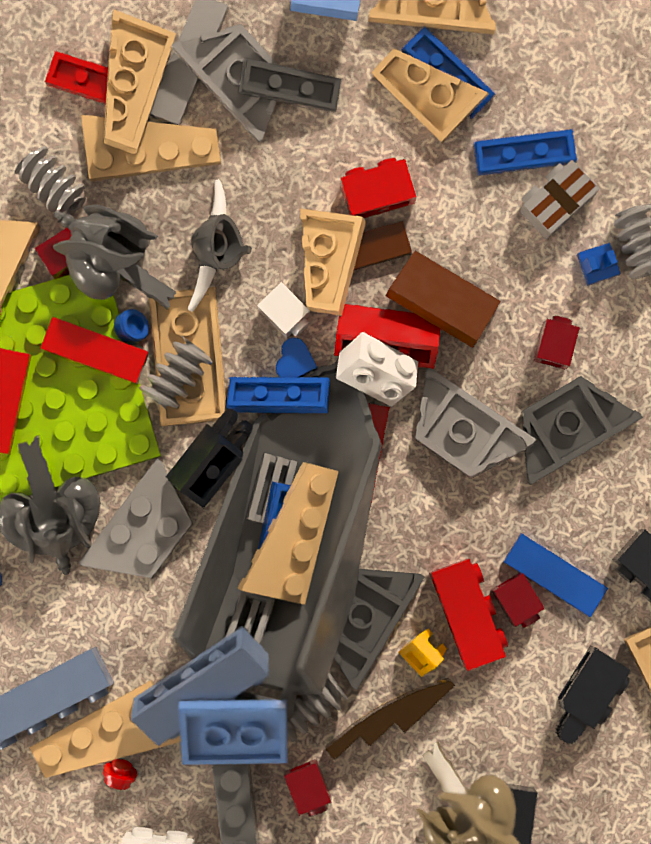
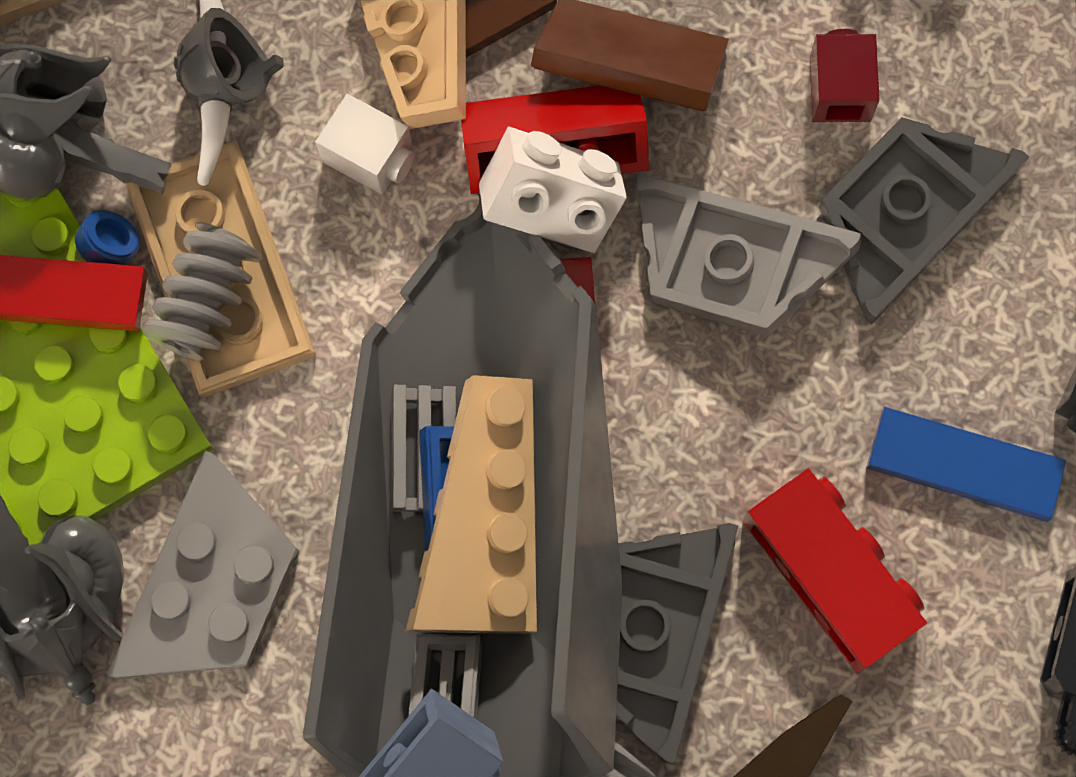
camera: 15 degrees left, 10 degrees down
(210, 458) = (299, 423): black hinge -> none
(279, 394) = (392, 285): blue tile -> none
(295, 359) = (406, 225): blue tile -> none
(422, 654) = (774, 666): yellow tile -> none
(518, 601) = (917, 523): dark red brick -> none

